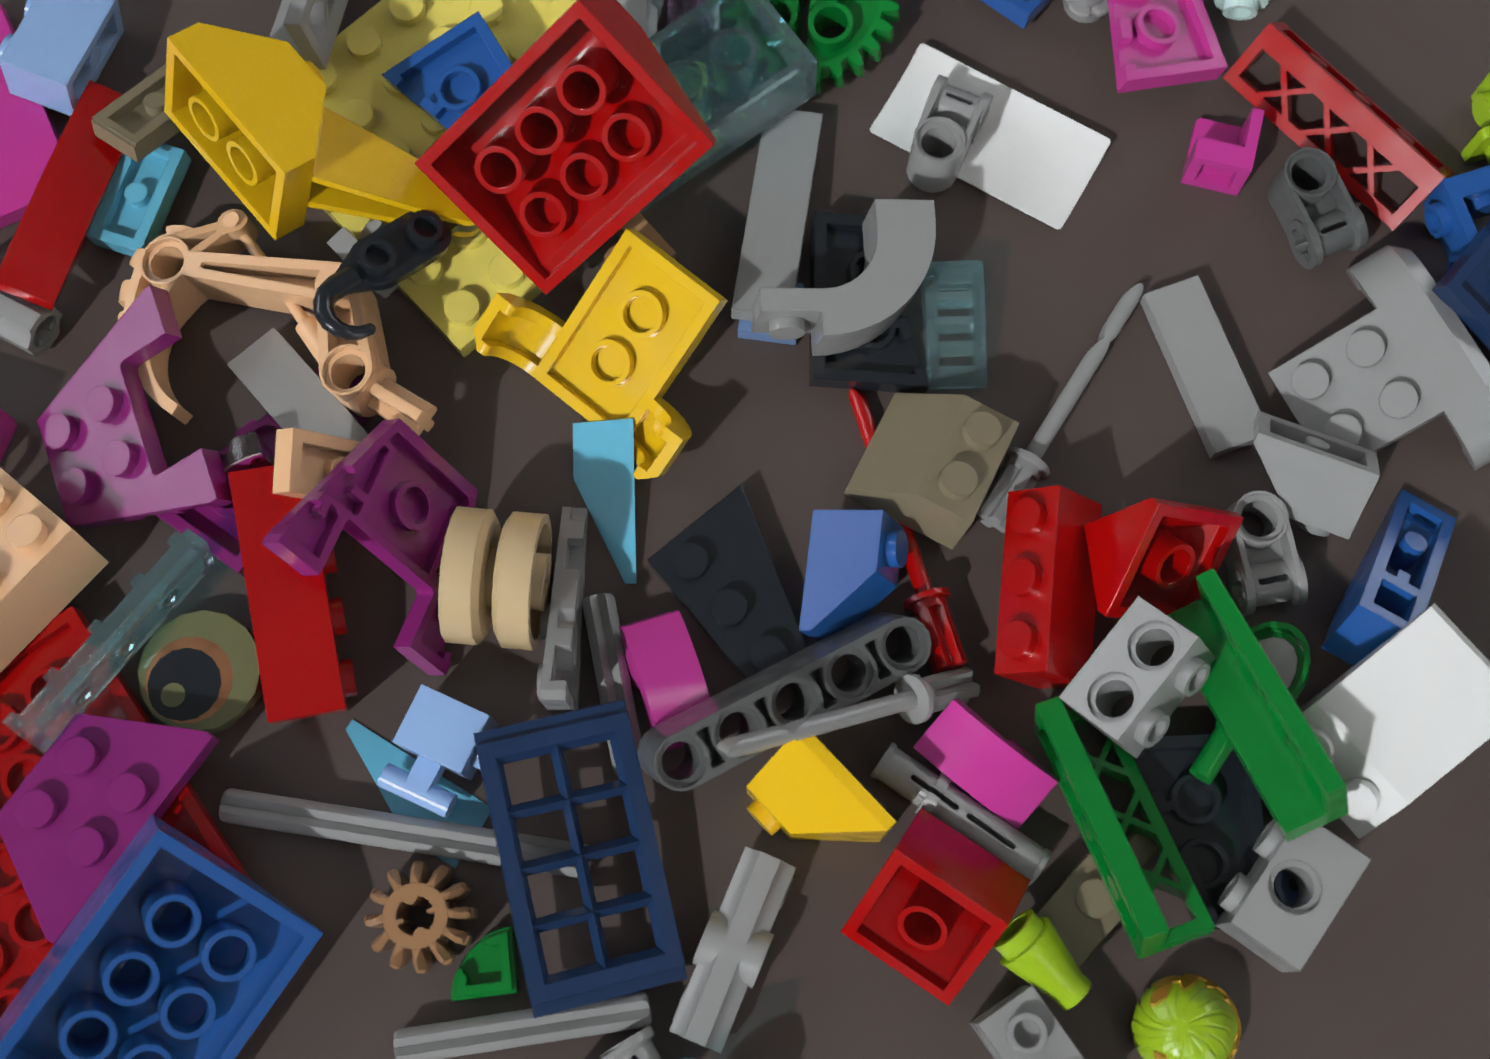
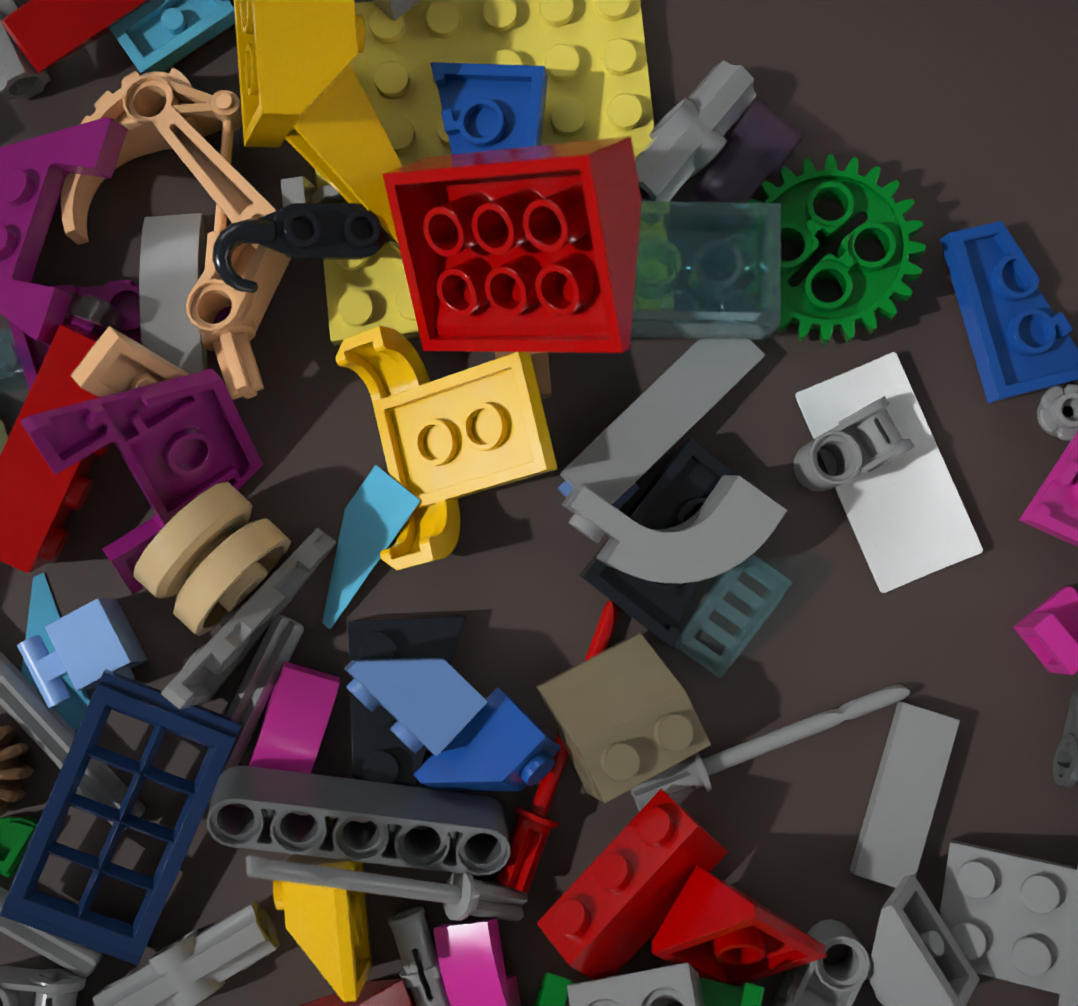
camera: 35 degrees right, 10 degrees up
(752, 561) = (421, 694): none -> medium blue slope

